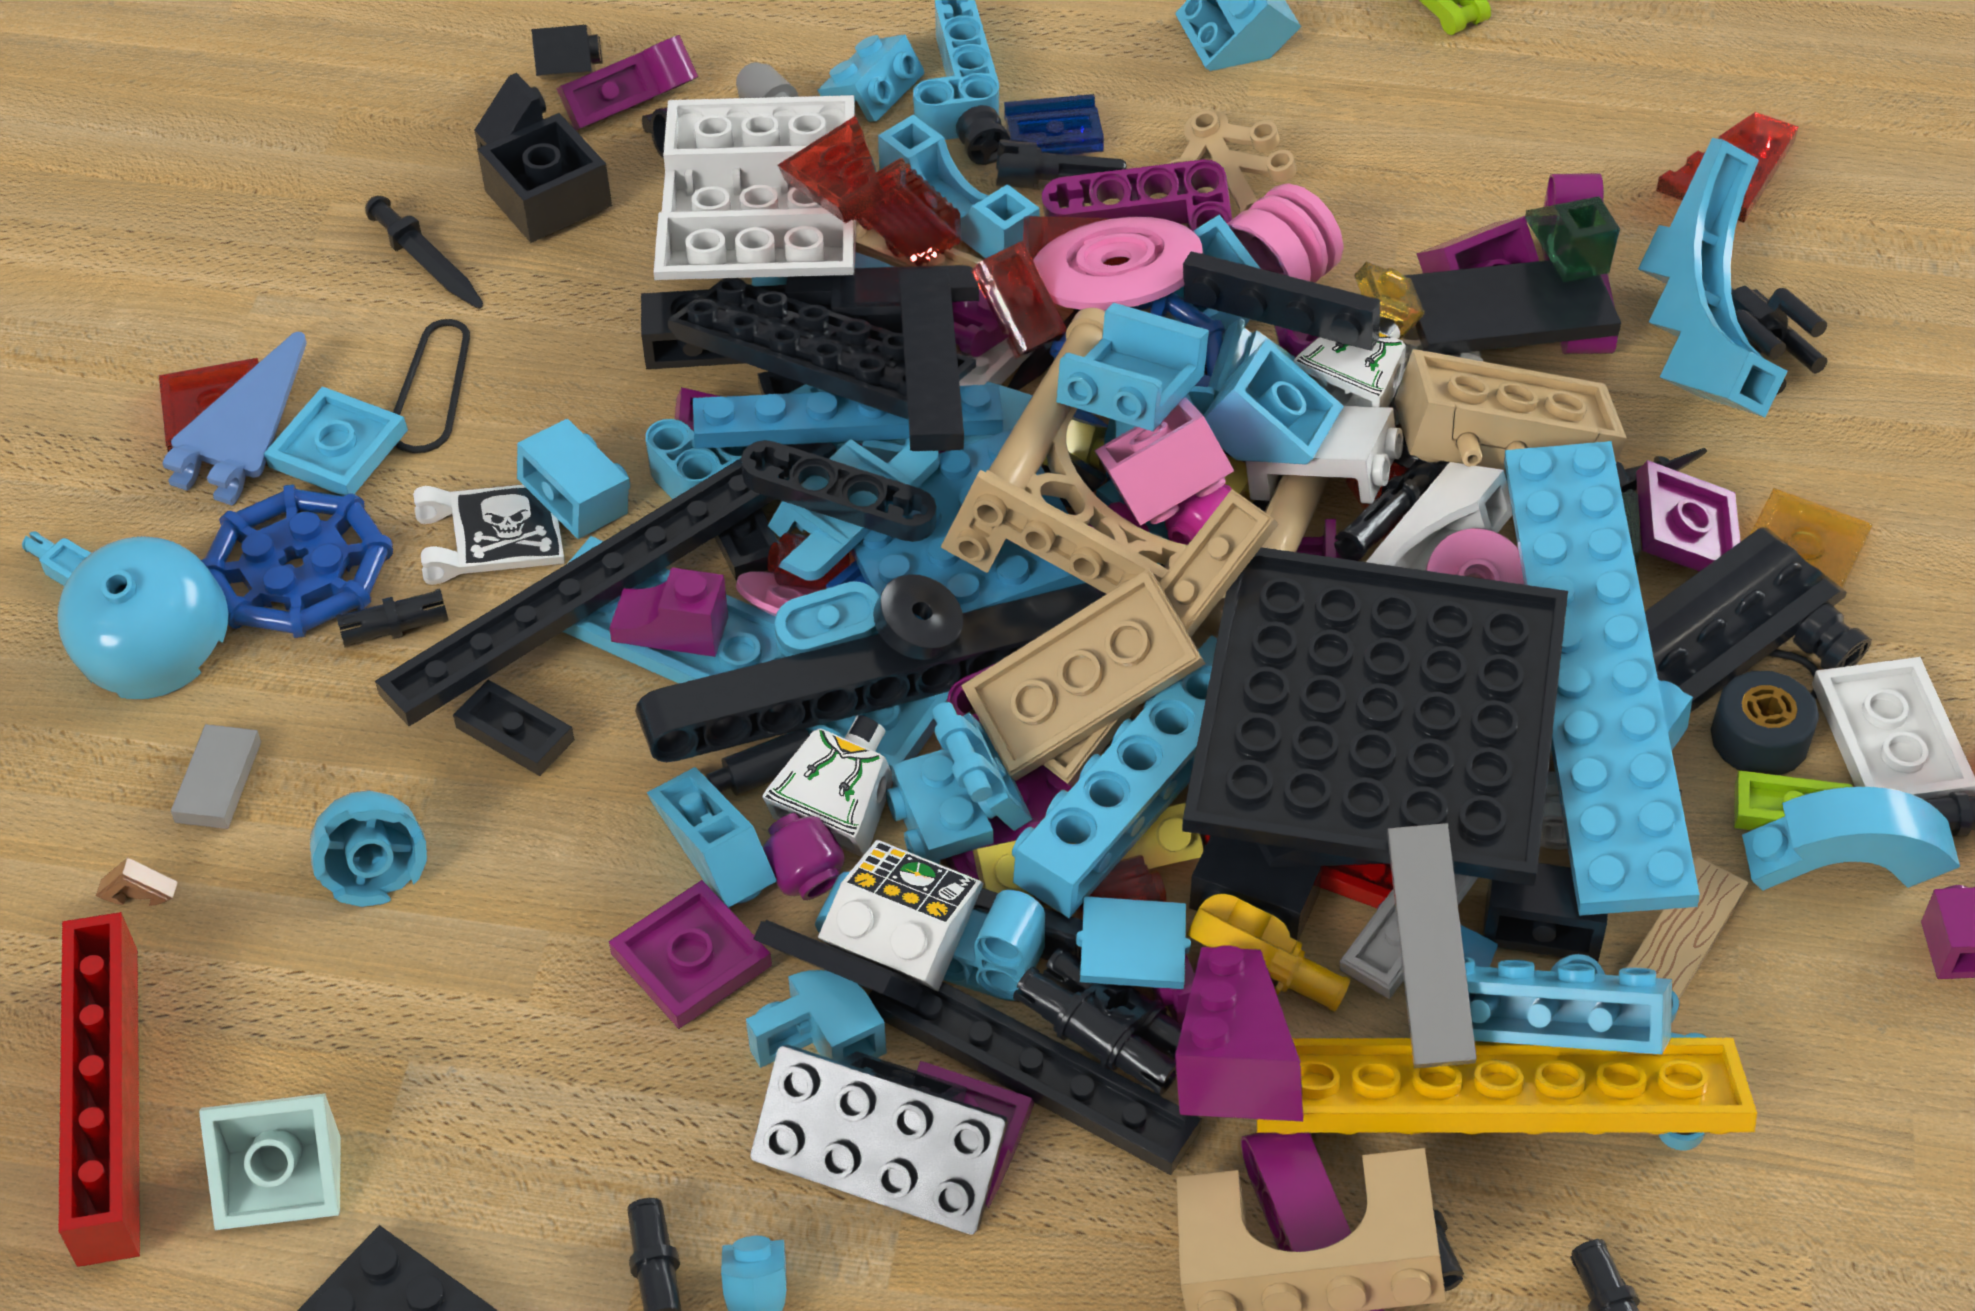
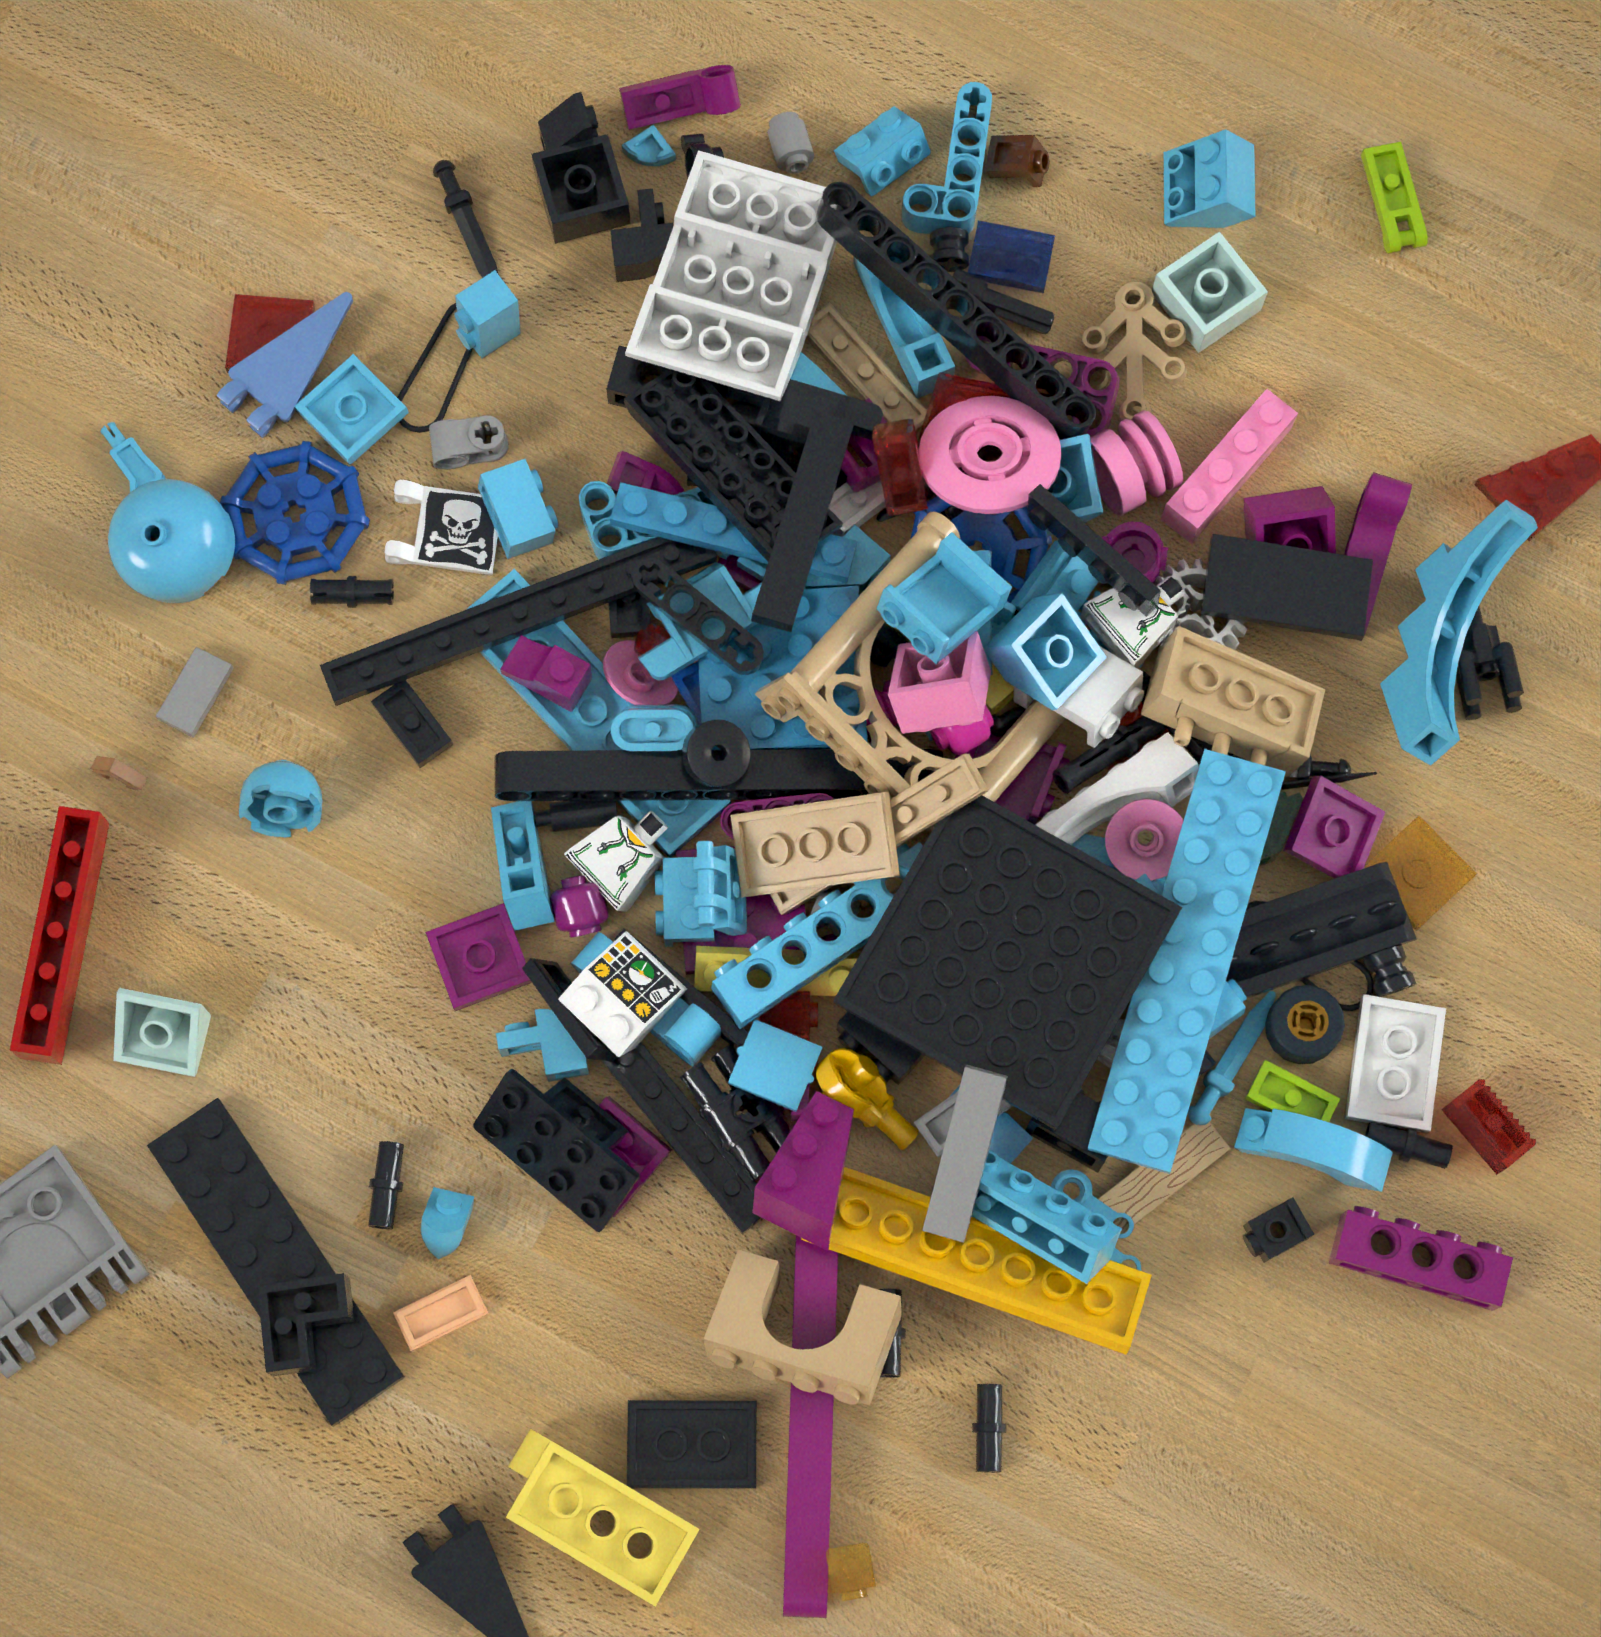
camera: 15 degrees right, 25 degrees up
(474, 303) = (487, 315): none -> medium azure brick
(485, 435) = (462, 441): none -> light grey piece
(565, 51) = (635, 55): black brick -> none
(613, 139) = (649, 148): none -> medium azure tile
(629, 214) = (641, 249): none -> black brick
(837, 172) = (801, 294): clear red wing -> none
(913, 216) = (848, 341): clear red brick -> none
(1014, 150) = (950, 294): none -> black beam
(1021, 44) = (1017, 158): none -> reddish brown bracket
(1287, 86) = (1209, 291): none -> light aqua brick
(1389, 216) = (1229, 466): none -> bright pink brick
(1396, 295) = (1186, 562): clear yellow bracket -> none
(1576, 236) = (1359, 546): clear green slope -> none
(1698, 787) = (1219, 1081): none -> medium azure sword
(1859, 950) = (1295, 1228): none -> black brick

